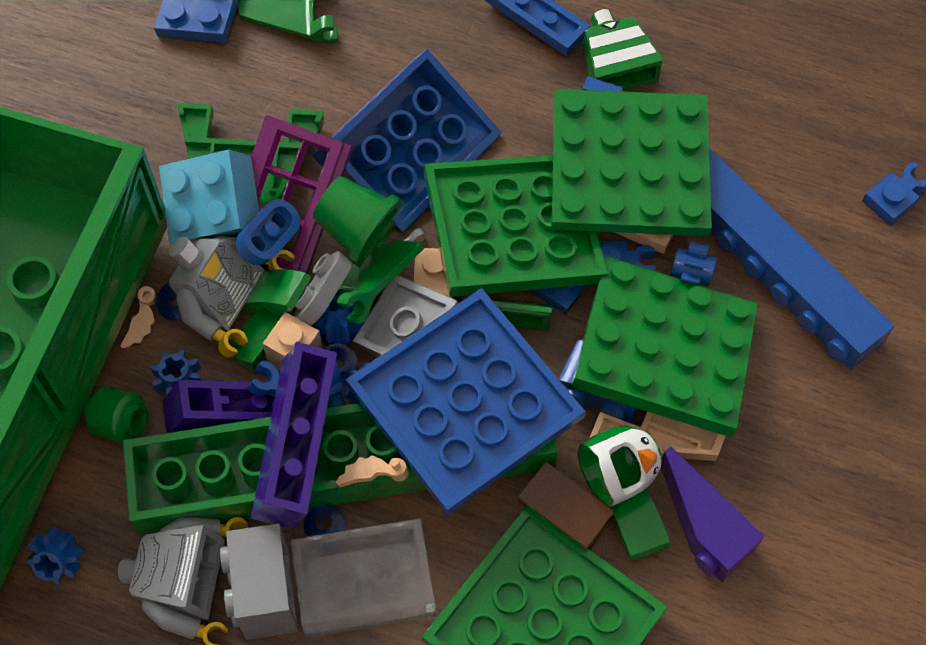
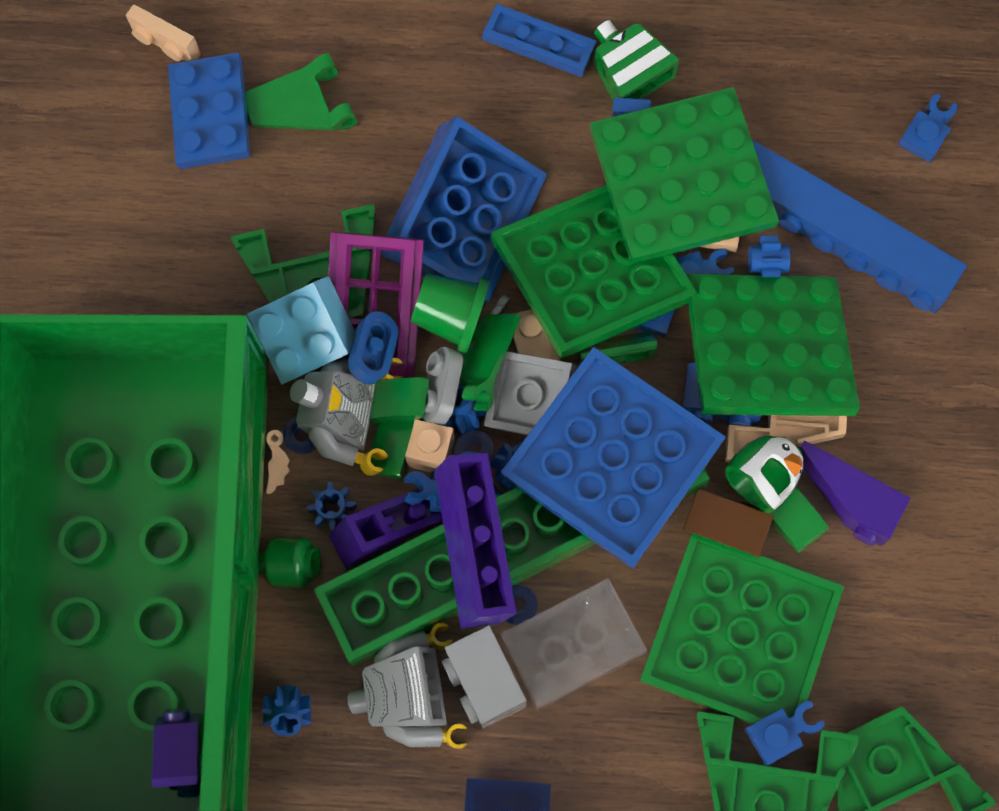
camera: 15 degrees left, 10 degrees up
(368, 469) = (547, 548): light nougat piece -> none

